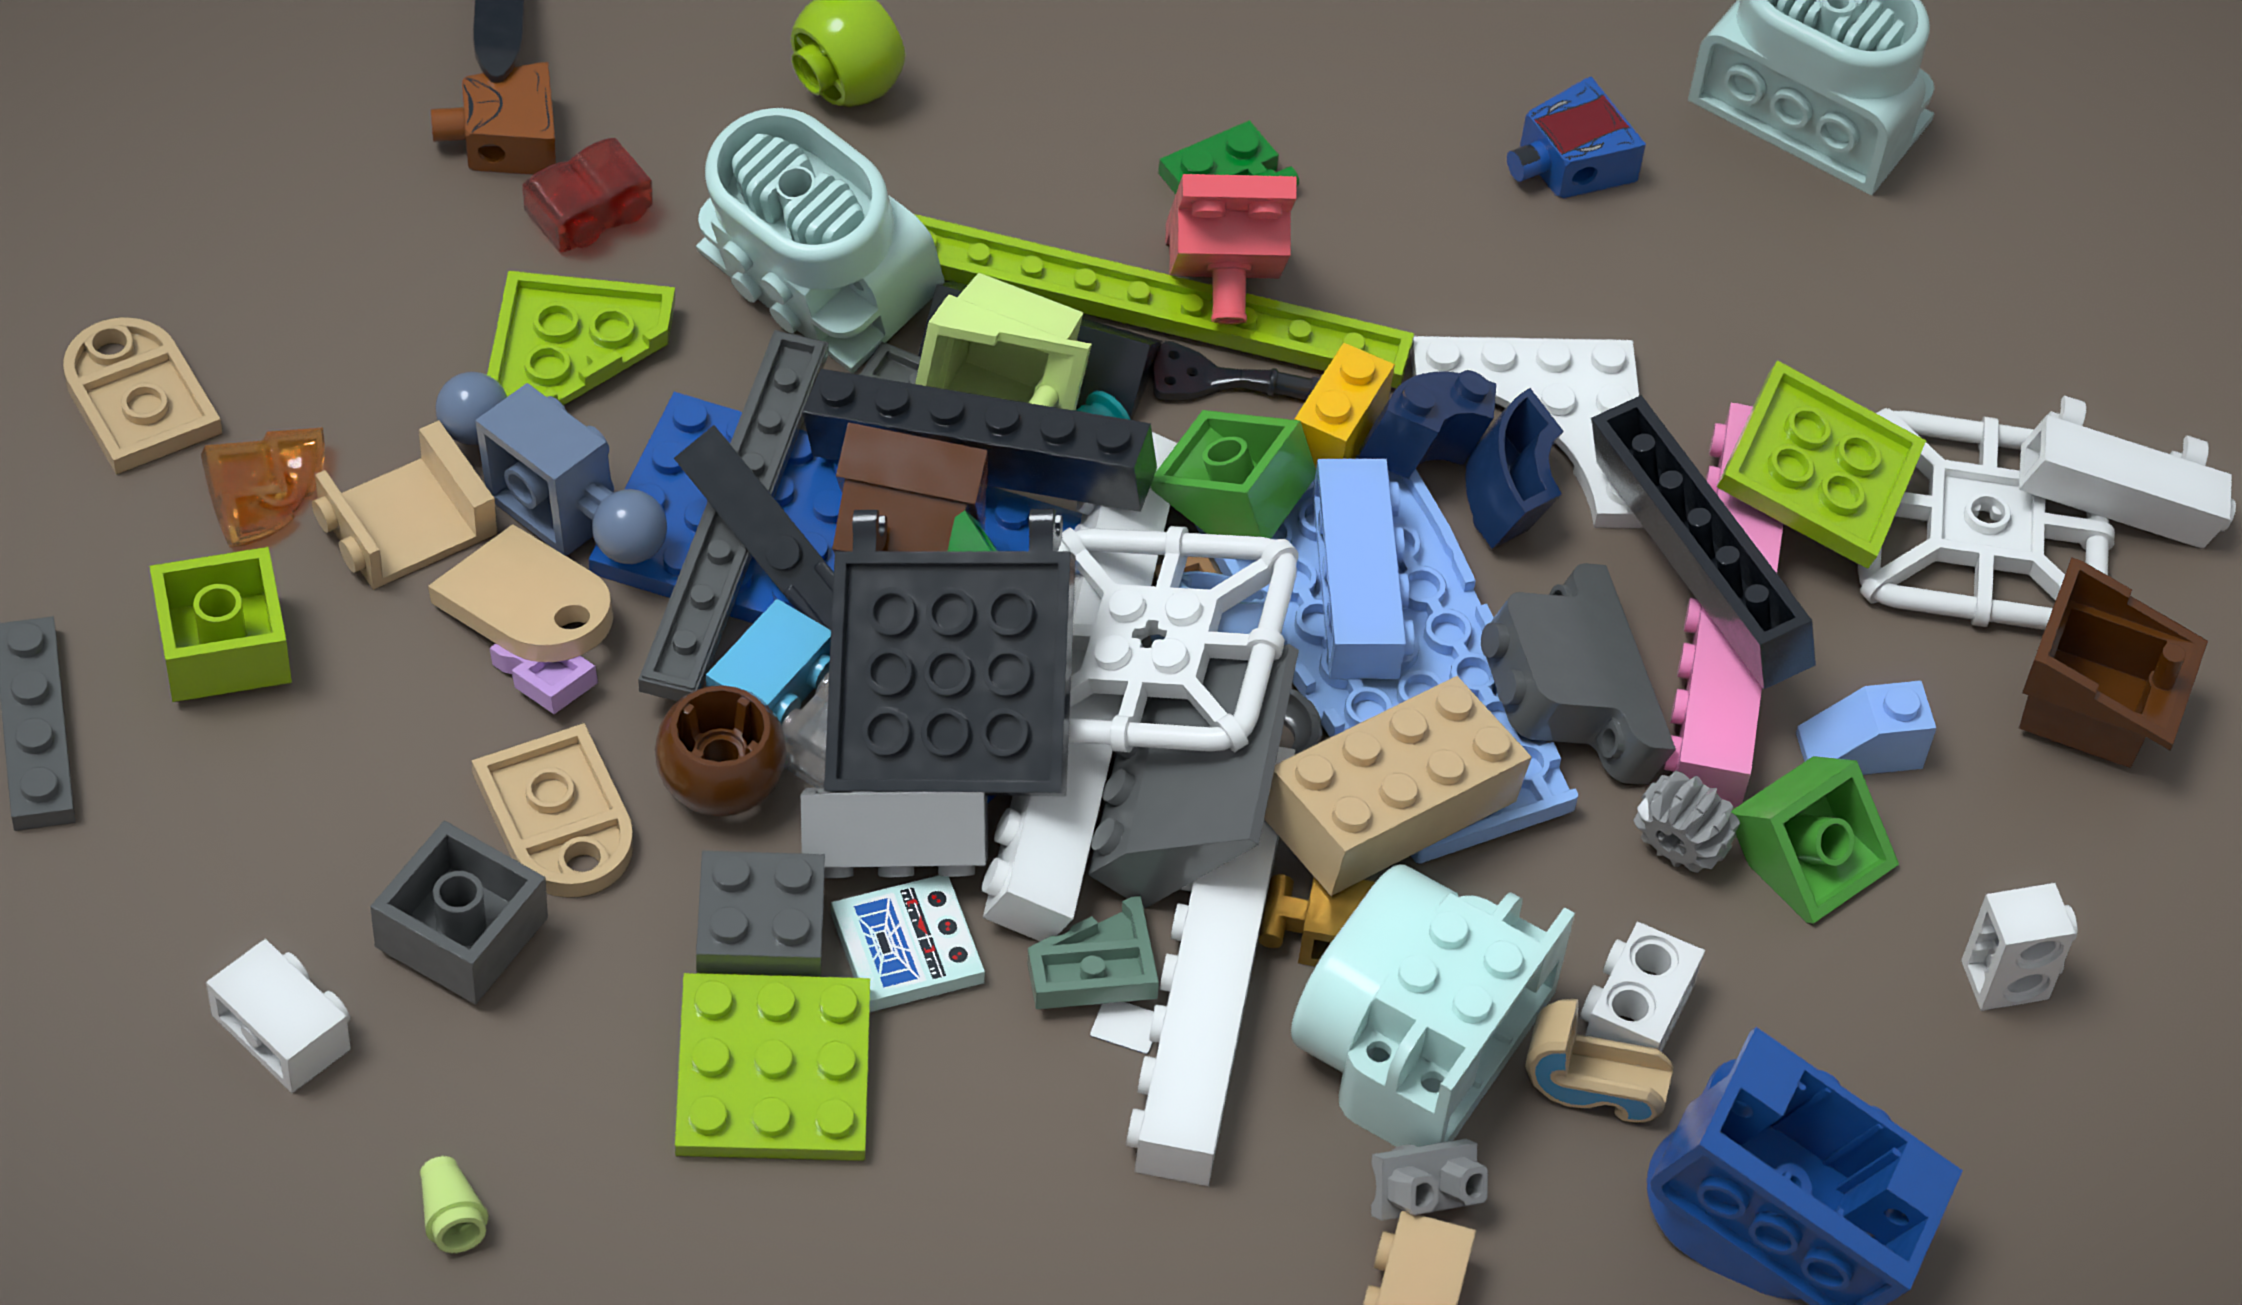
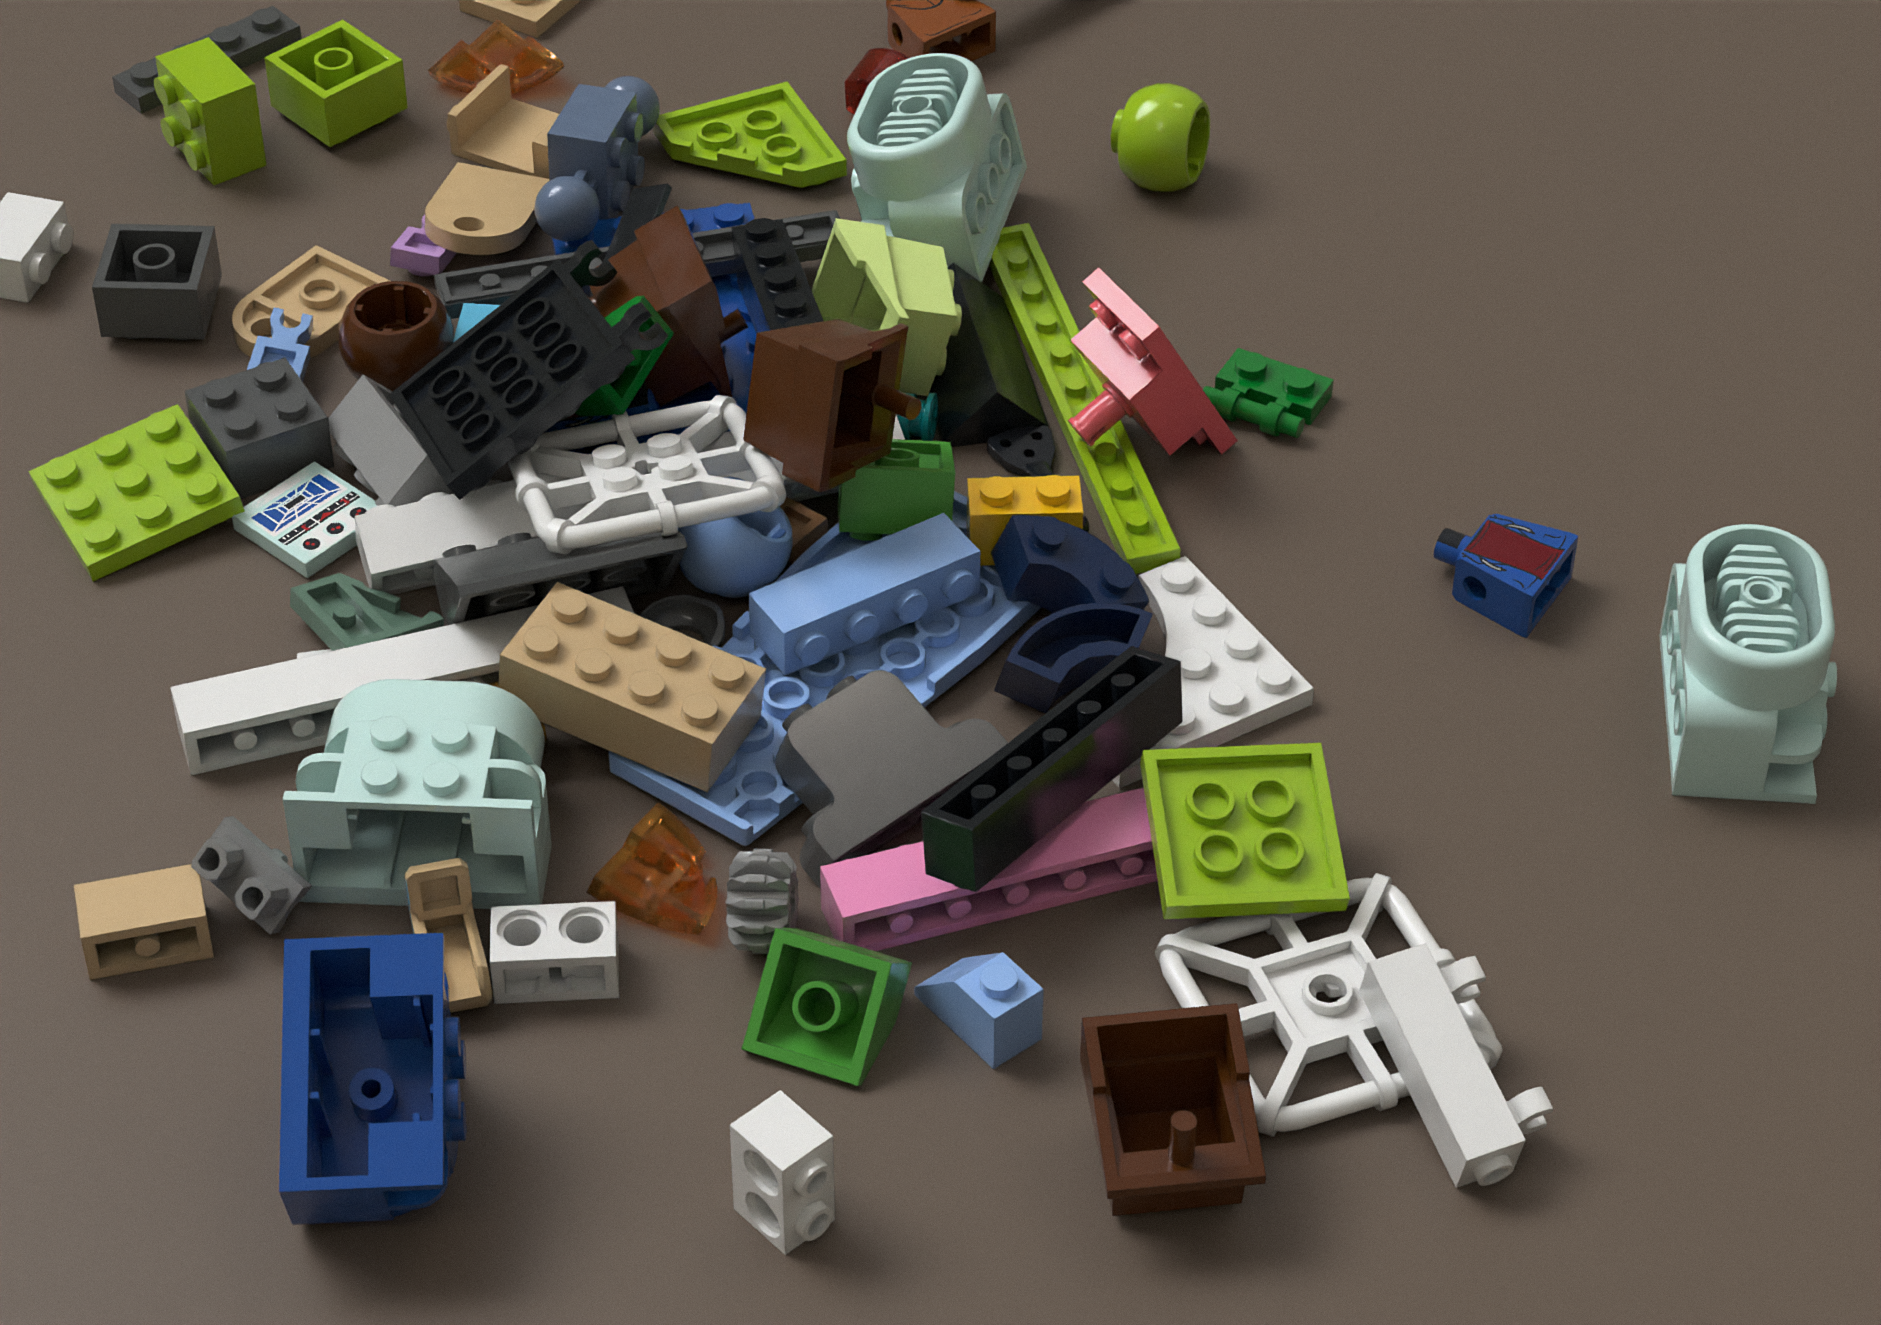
camera: 65 degrees right, 10 degrees down
(198, 748) = (210, 111): none -> lime brick
(651, 866) = (284, 343): none -> light blue plate
(1222, 448) = (827, 398): none -> reddish brown piece
(1595, 887) = (659, 876): none -> clear orange brick

